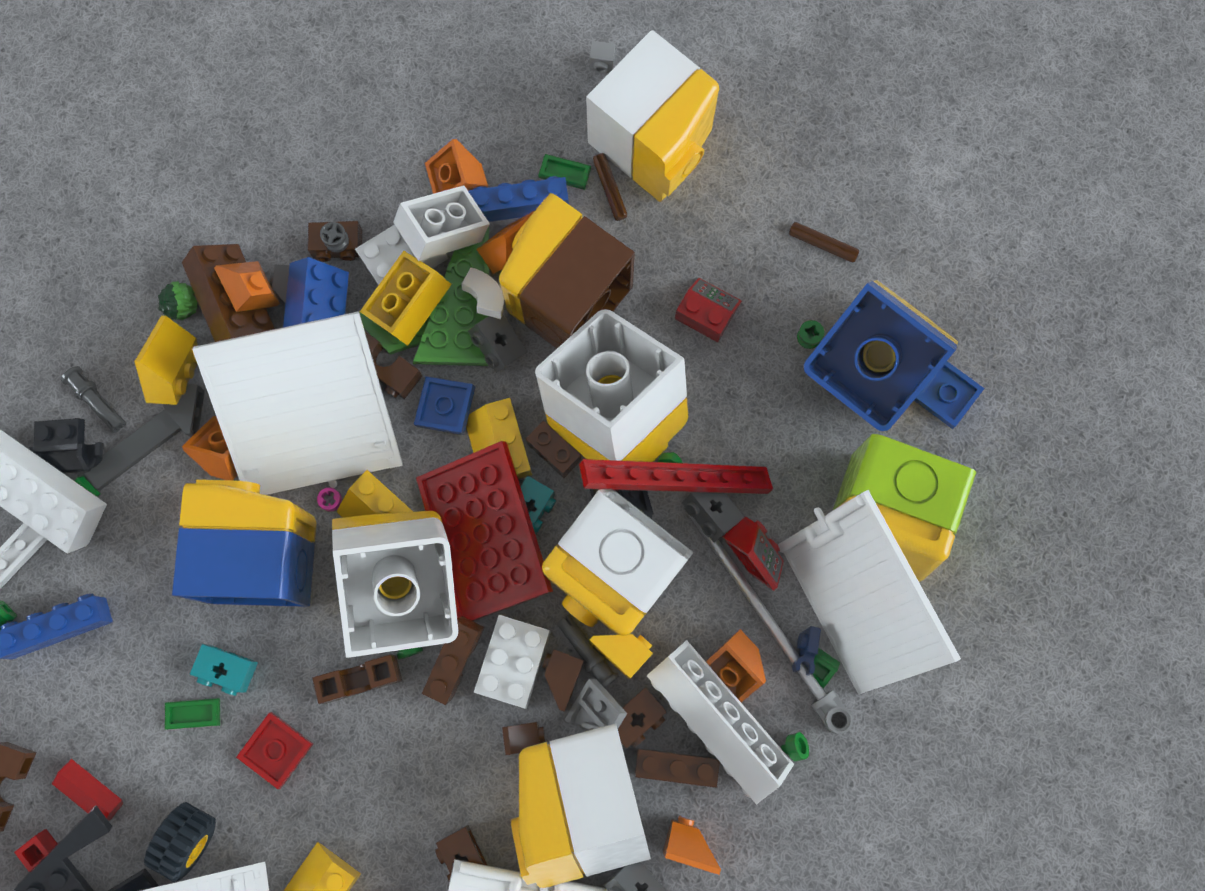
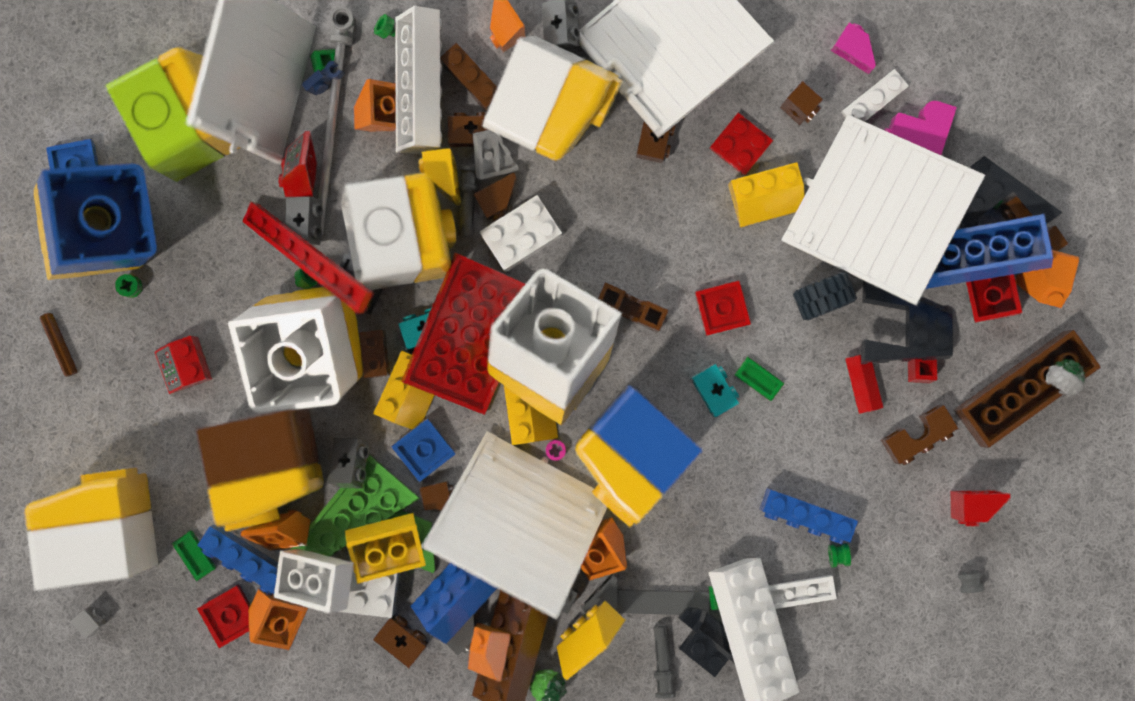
camera: 140 degrees left, 10 degrees up
(332, 231) = (394, 641): dark grey wheel -> none
(451, 661) = (563, 263): reddish brown arch -> none
(485, 291) = (325, 504): white tile -> none
(496, 147) = (226, 616): none -> red plate
(522, 736) = (554, 178): reddish brown slope -> none
(610, 187) = (171, 516): reddish brown axle -> none

